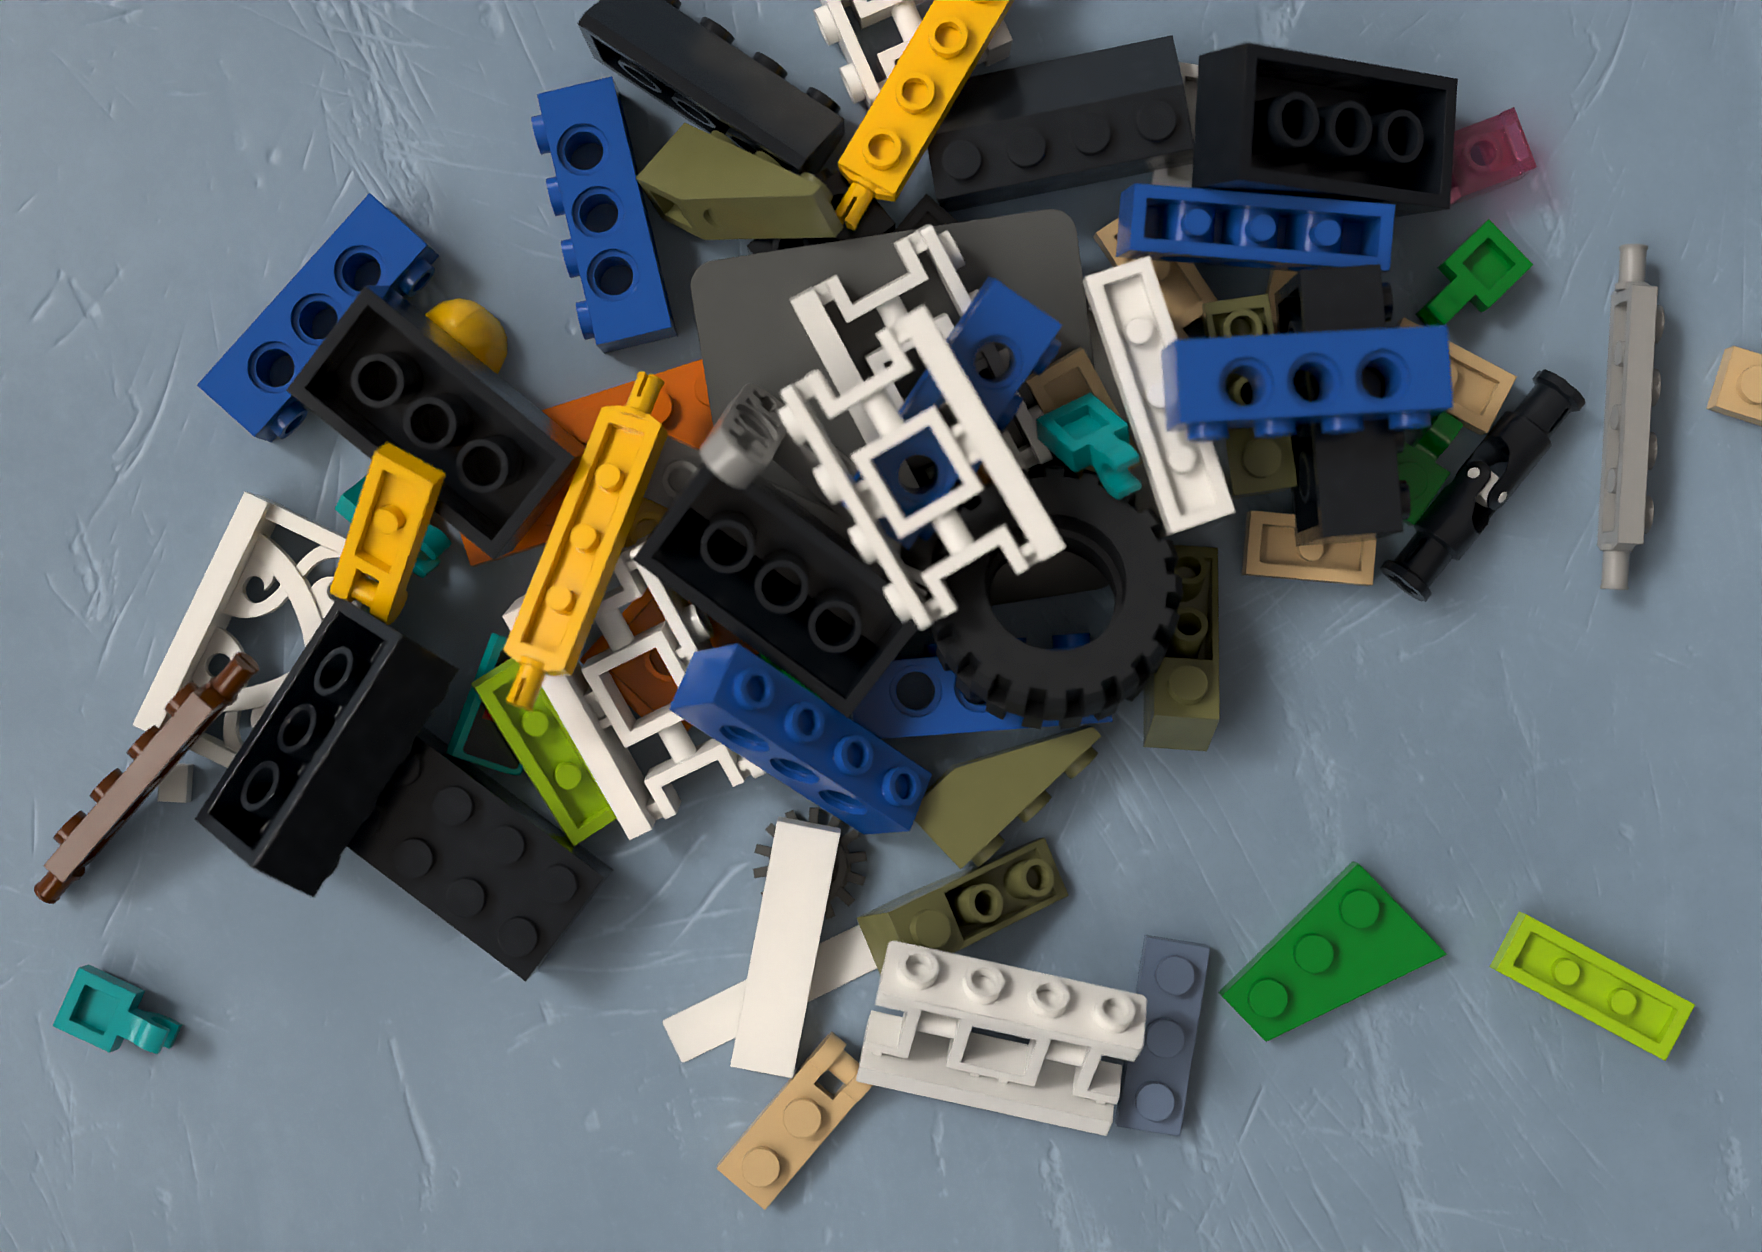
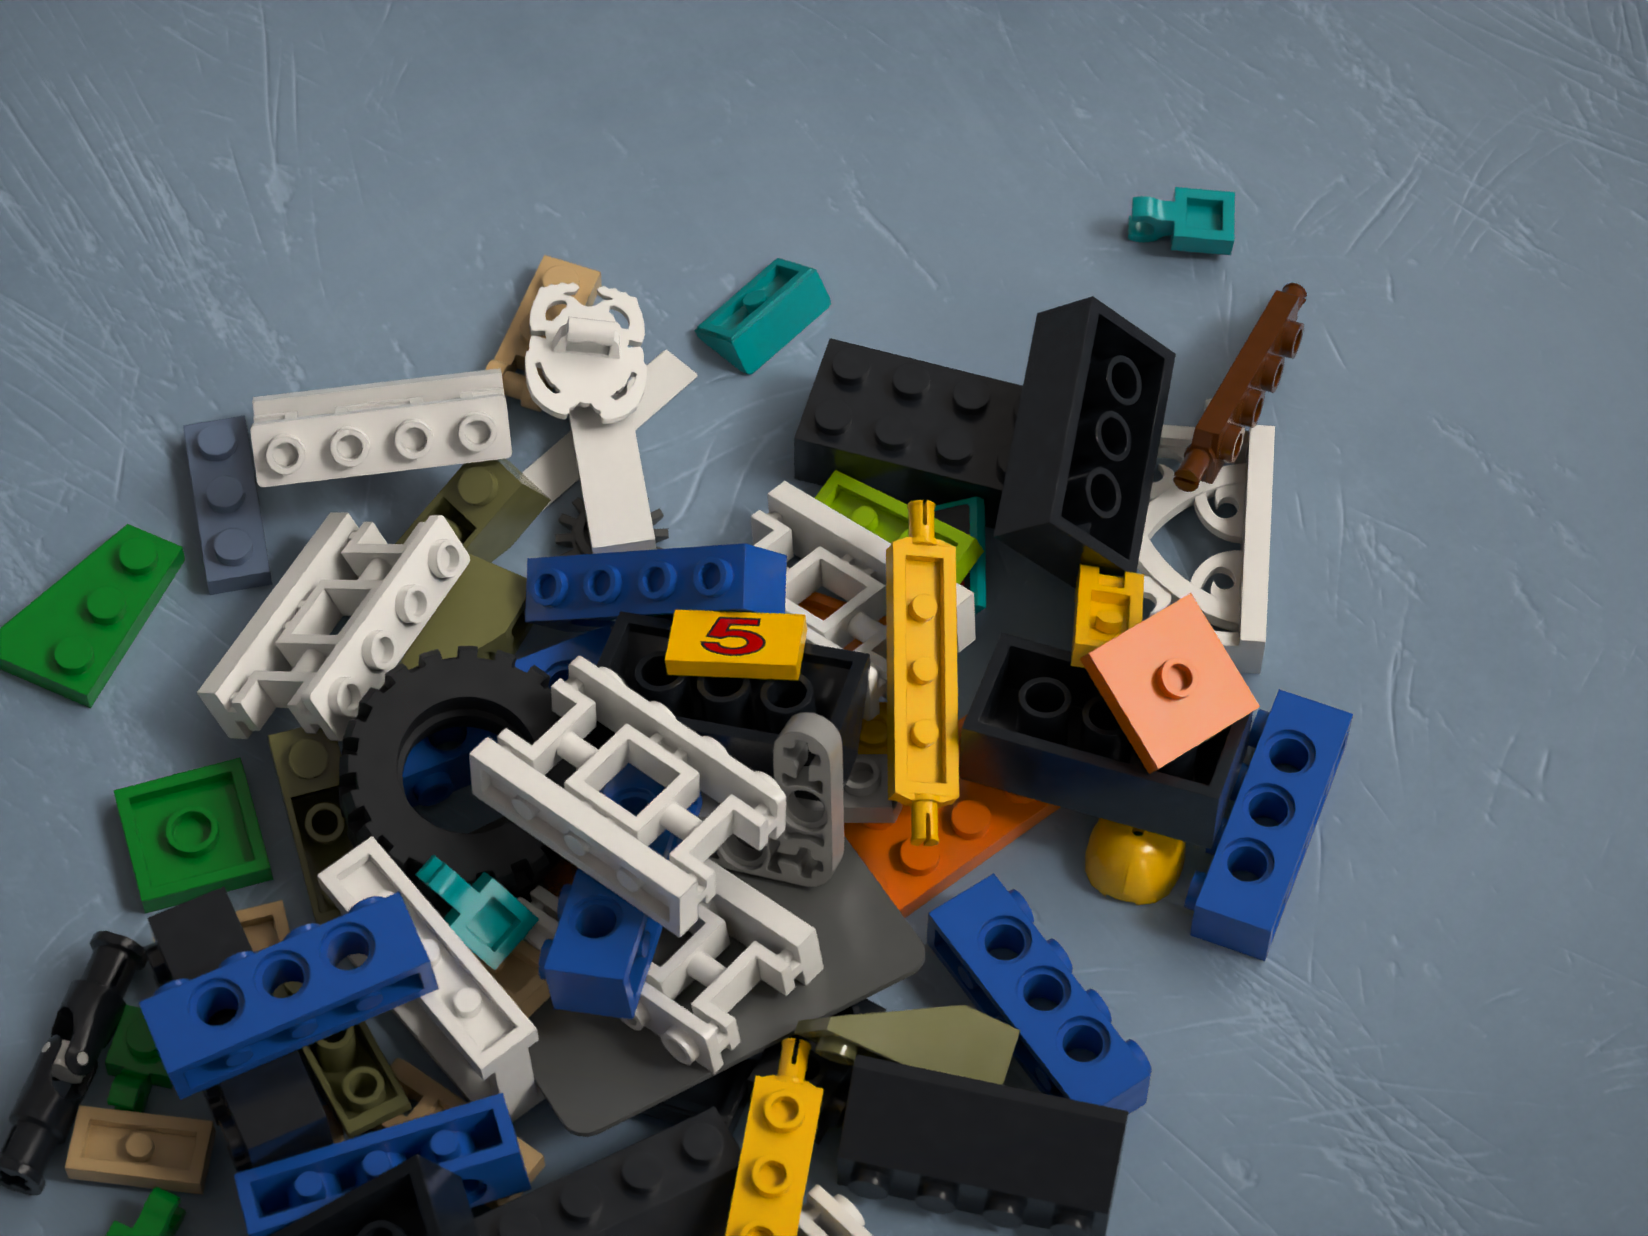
camera: 160 degrees right, 30 degrees down
(360, 410) = (1169, 683): none -> plate
(572, 1065) = (765, 314): none -> teal slope
(756, 616) = (736, 644): none -> yellow tile
(768, 1063) = (586, 353): none -> white shield
(1141, 857) = (286, 647): none -> white fence
(1301, 684) = (192, 834): none -> green tile

